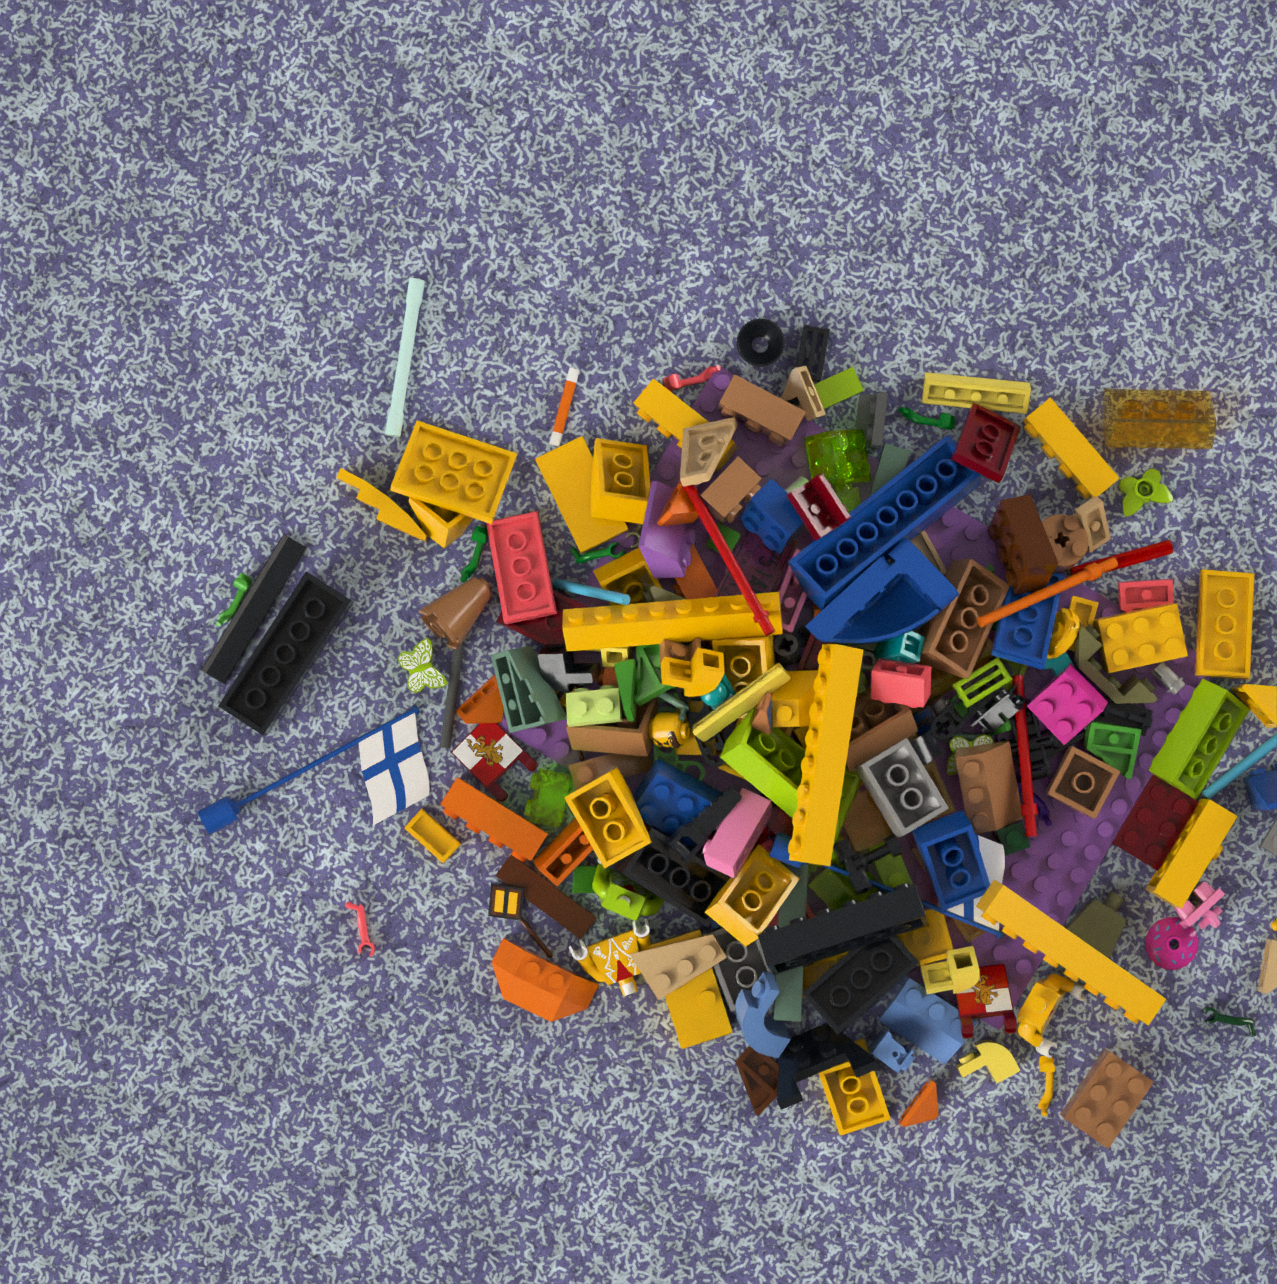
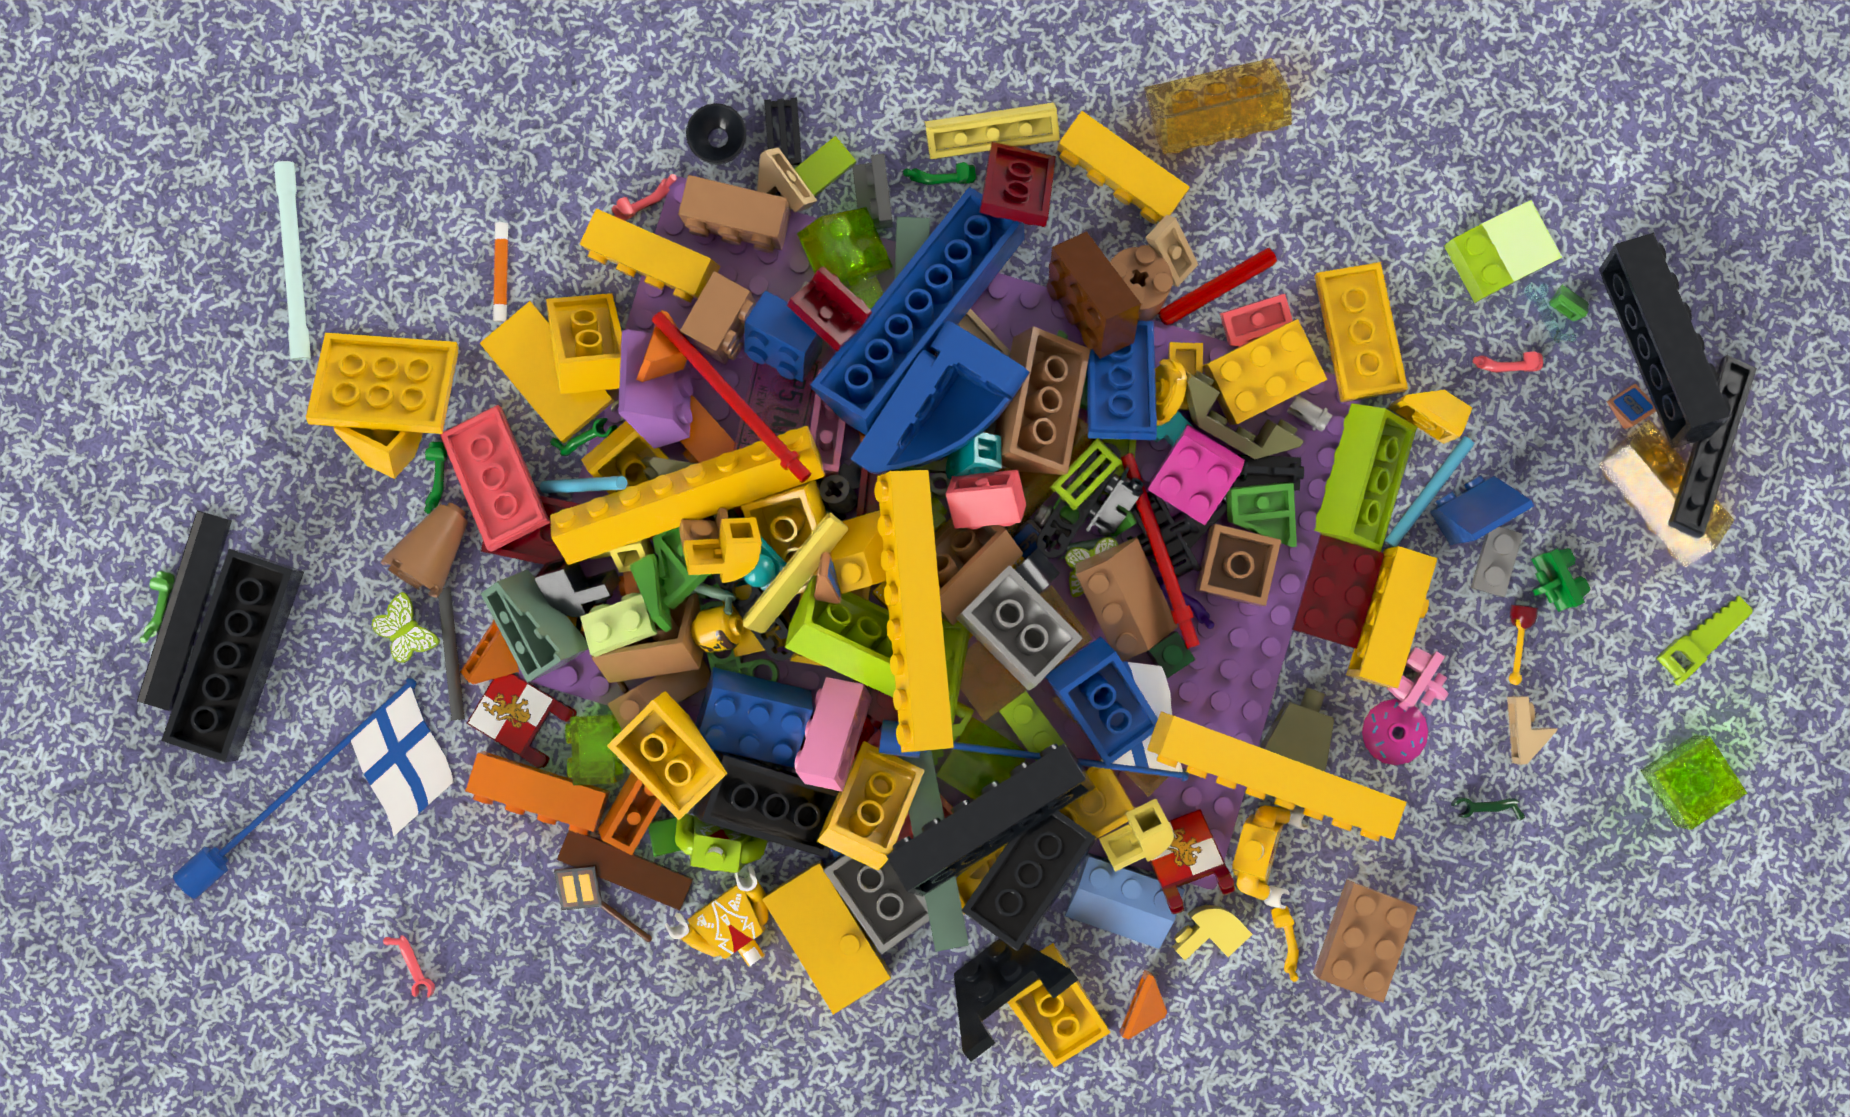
camera: 20 degrees left, 0 degrees up
(389, 511) = (316, 450): yellow slope -> none
(432, 835) = (469, 830): yellow tile -> none
(540, 983) = (644, 976): orange wedge -> none
(678, 963) = (801, 912): tan wing -> none
(703, 449) = (672, 275): tan wing -> none
(704, 824) = (788, 734): black piece -> none
(730, 536) = (736, 377): bright green slope -> none
(759, 1078) = (937, 1021): reddish brown wing -> none
(760, 1031) = (918, 965): medium blue arch -> none
(858, 864) = (989, 734): black bar -> none
(890, 1051) = (1089, 952): medium blue hinge -> none
(1089, 573) = (1183, 311): orange bar -> none
(1143, 491) = (1221, 197): lime animal -> none

